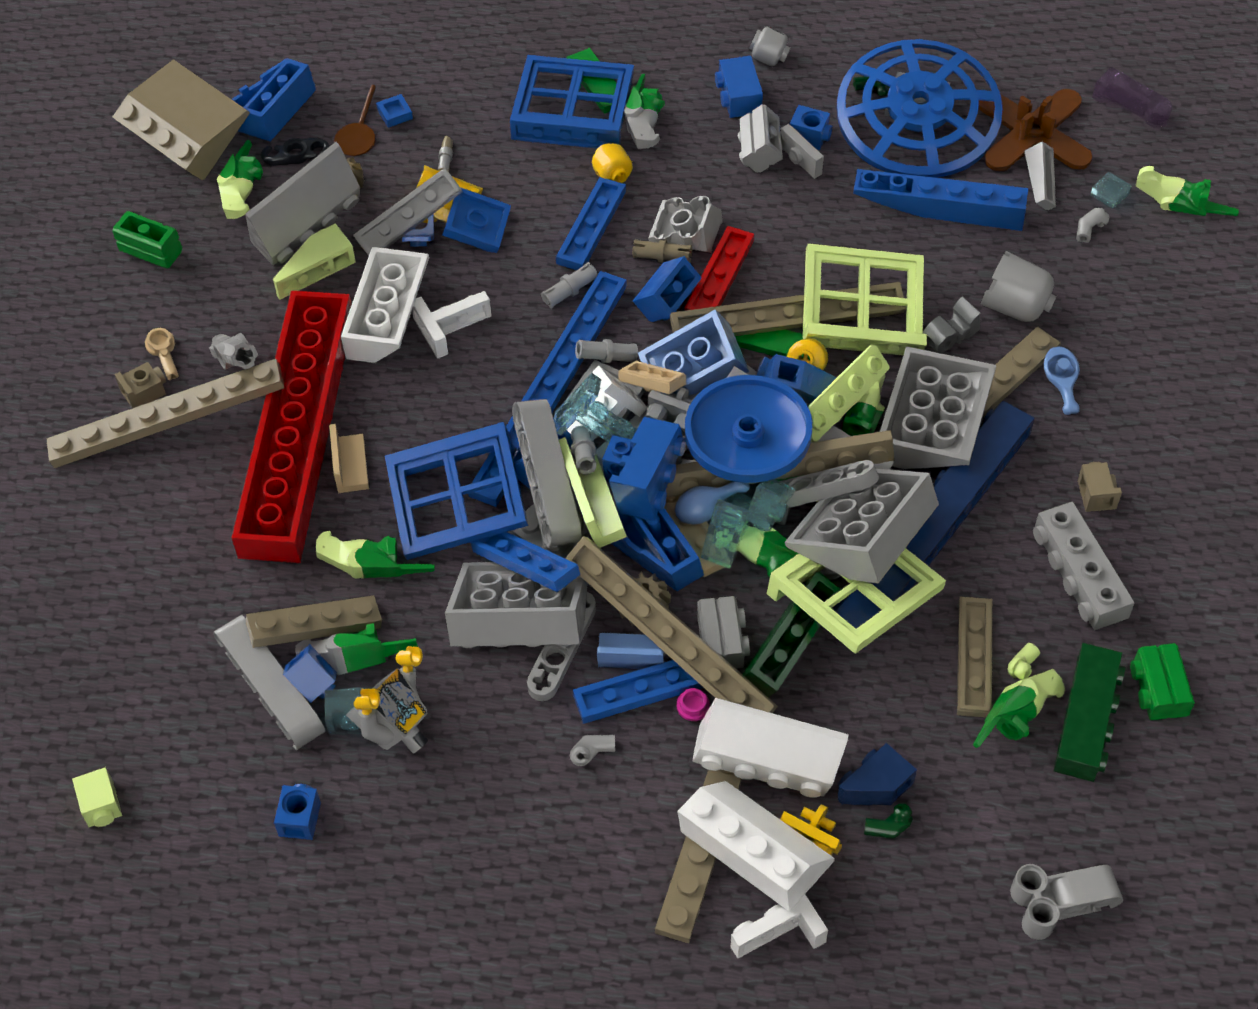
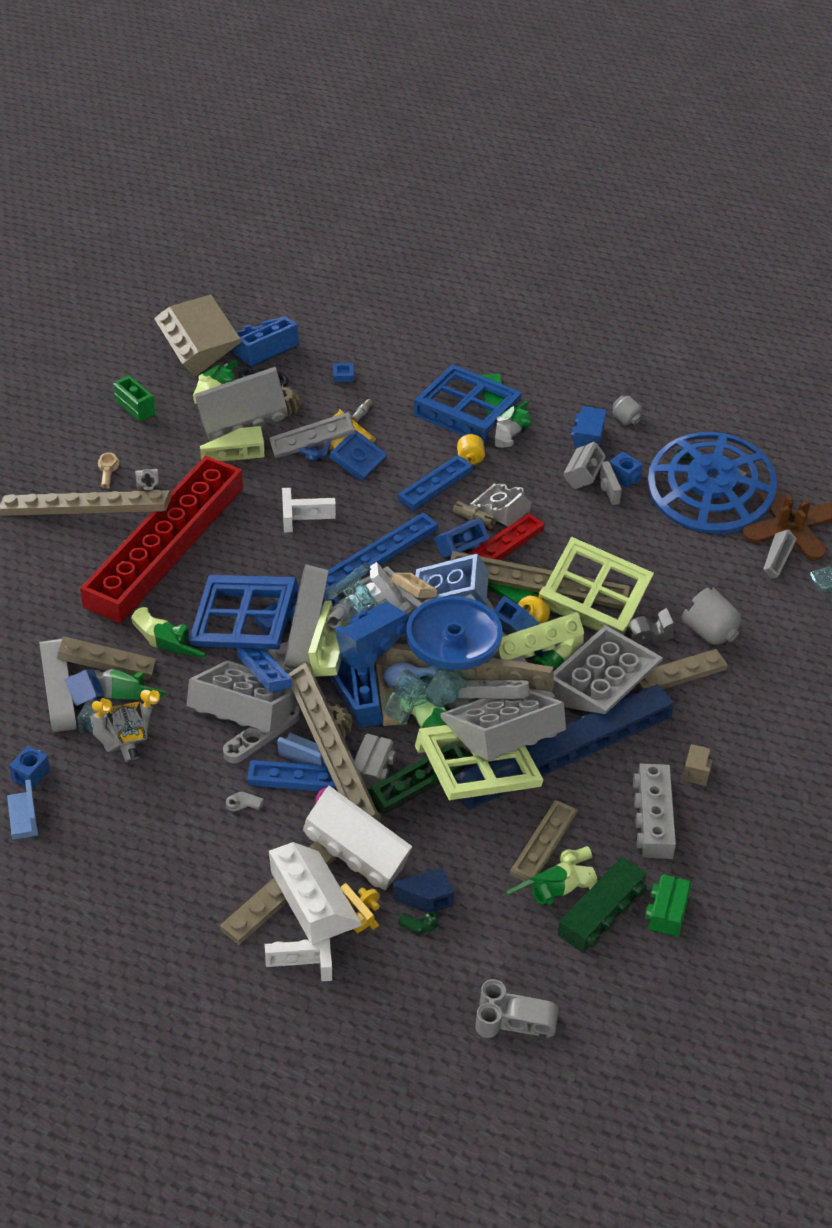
camera: 20 degrees right, 10 degrees down
(141, 384) = (81, 481): dark tan brick -> none
(322, 878) = (22, 813): none -> medium blue panel
(349, 461) = (186, 572): tan panel -> none
(357, 137) = (309, 381): reddish brown piece -> none
(383, 304) = (261, 483): white slope -> none
(569, 285) = (397, 515): light grey pin -> none
(606, 351) = (397, 562): light grey pin -> none
(945, 198) = (697, 545): blue slope -> none
(1062, 371) = (717, 682): medium blue piece -> none
(1095, 217) = (803, 592): light grey arm -> none

